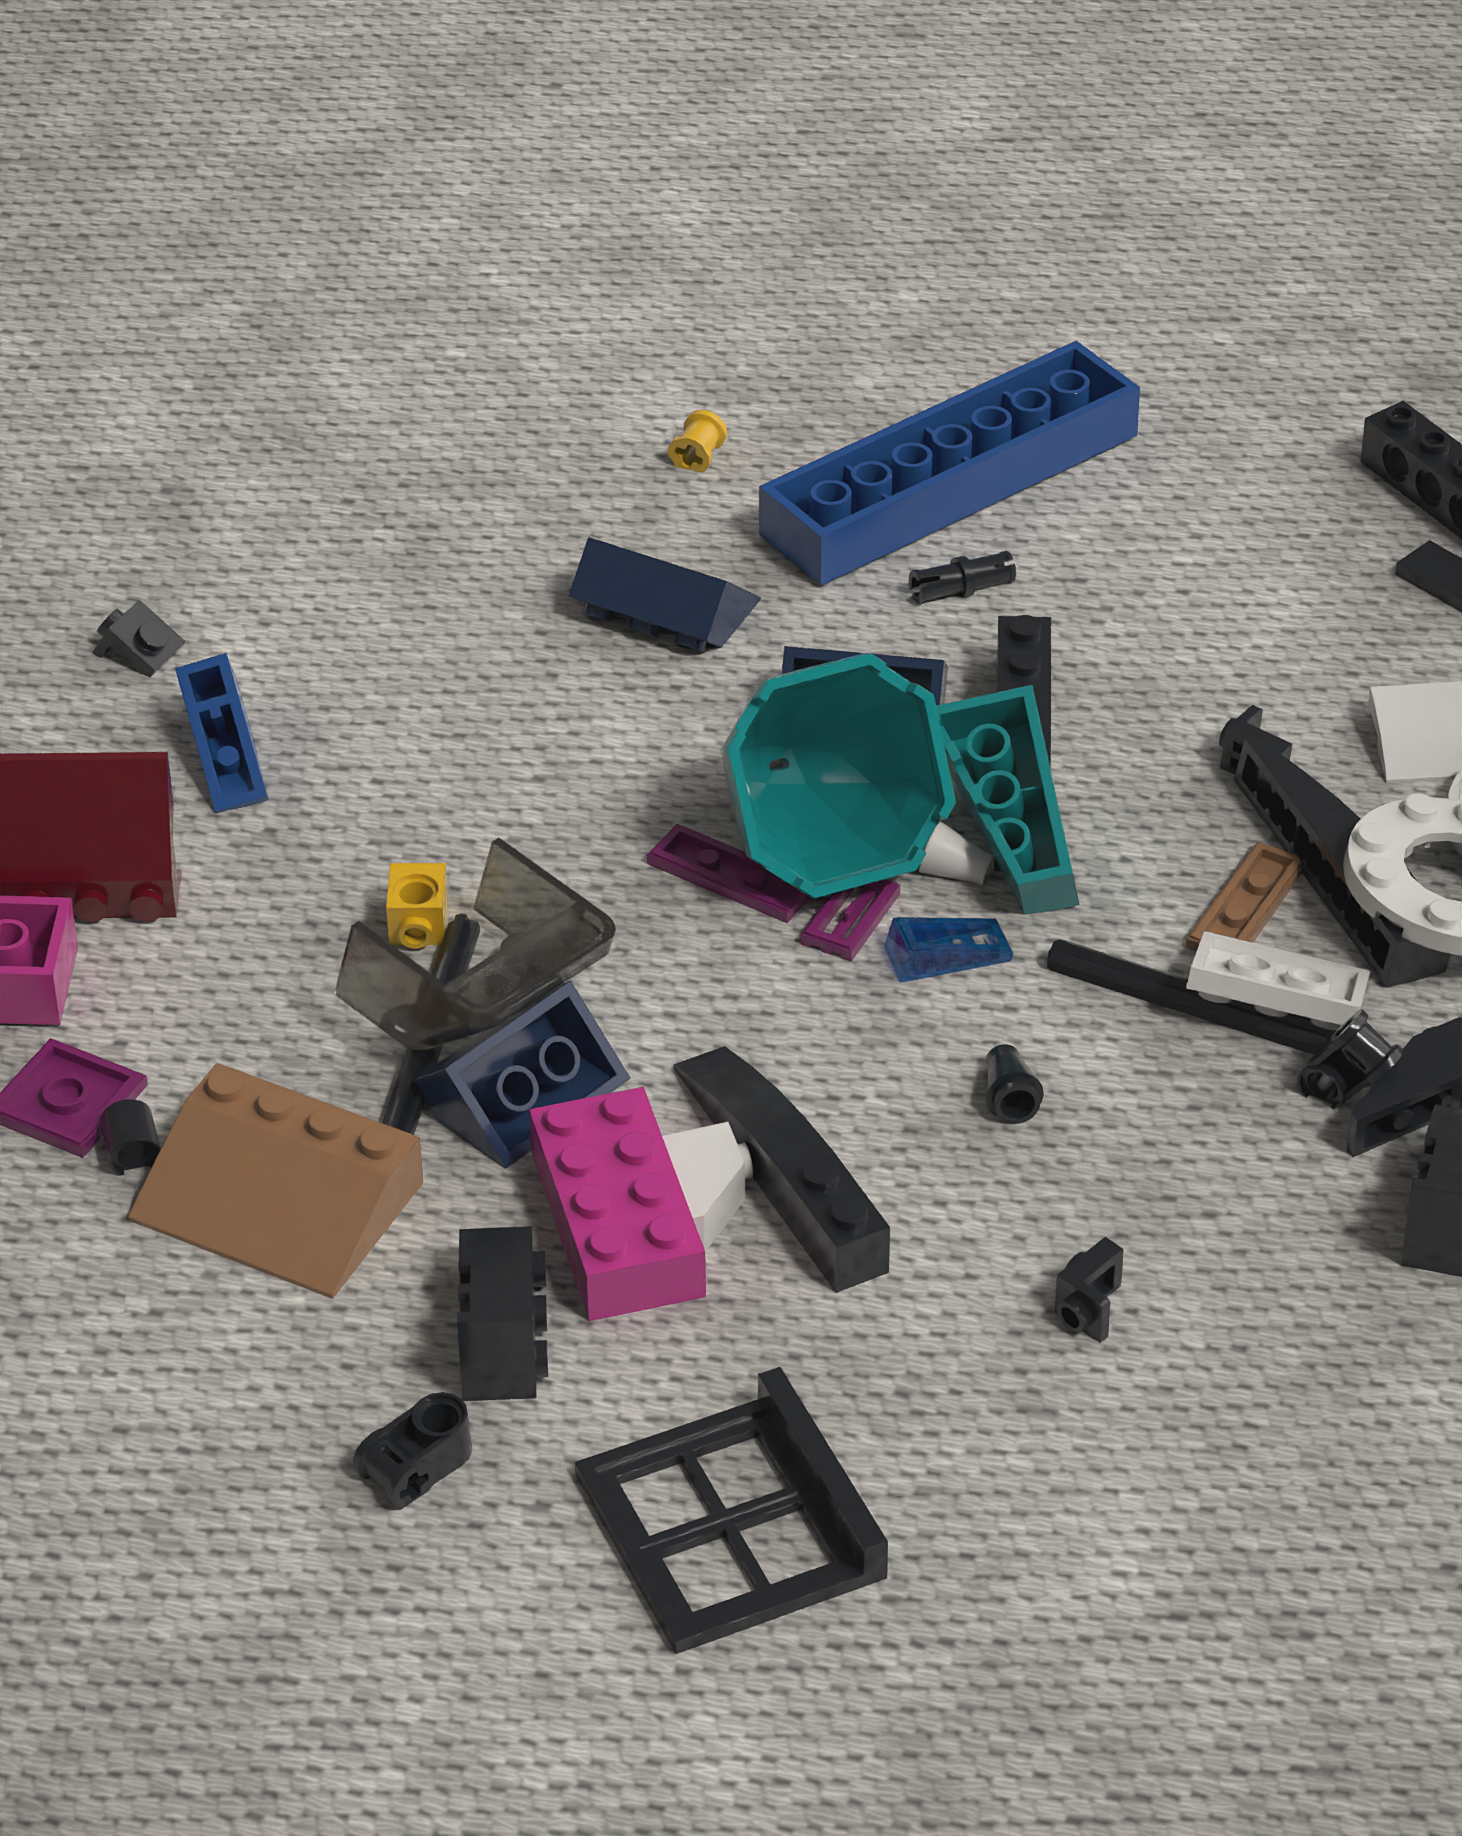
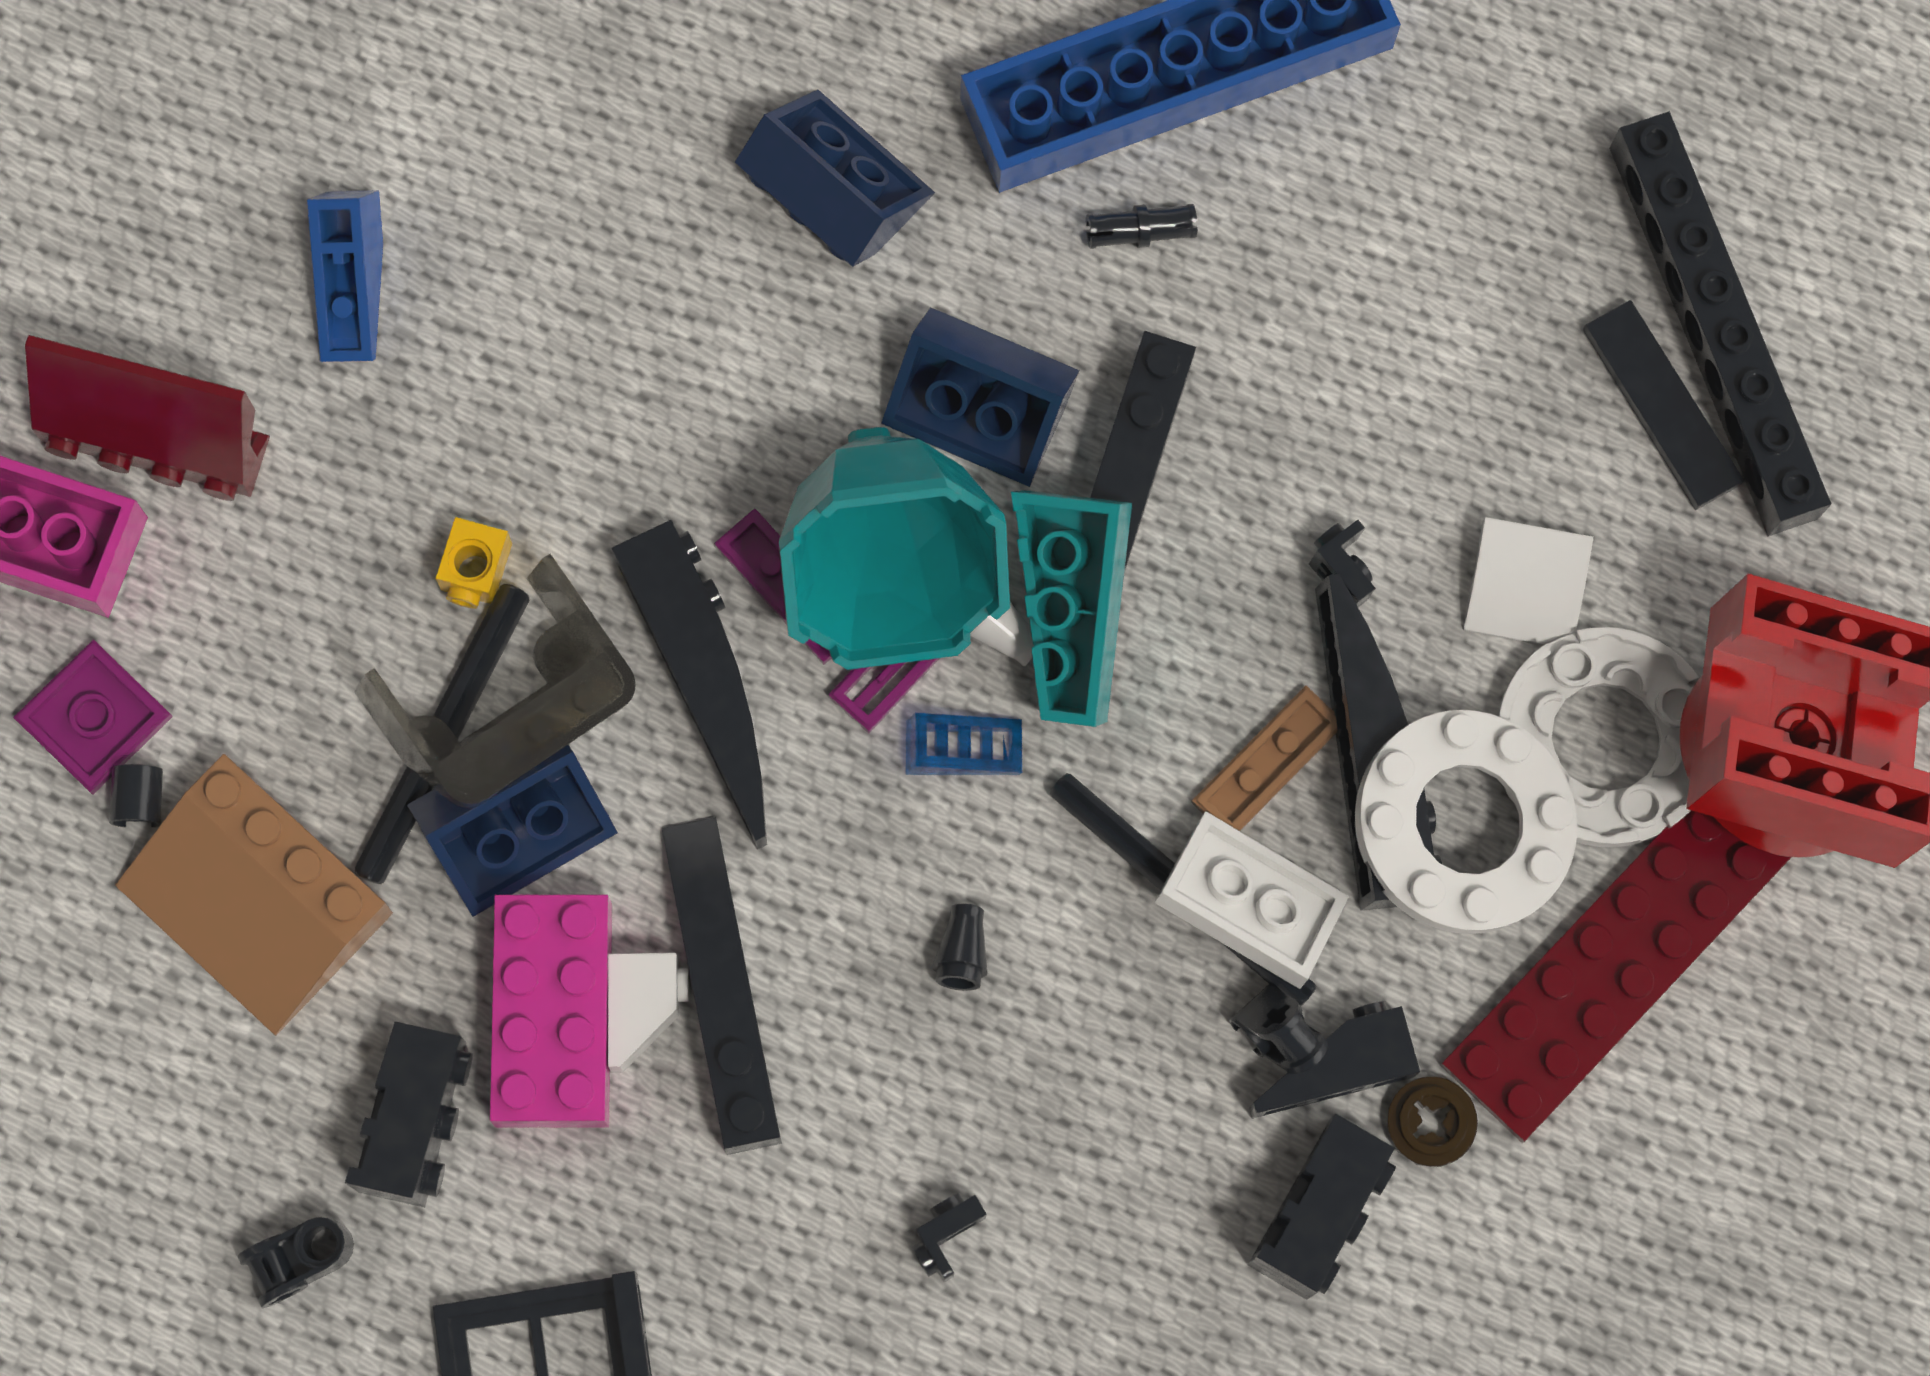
camera: 10 degrees right, 35 degrees up
(139, 638) = (299, 100): black bracket -> none
(672, 934) = (699, 657): none -> black slope

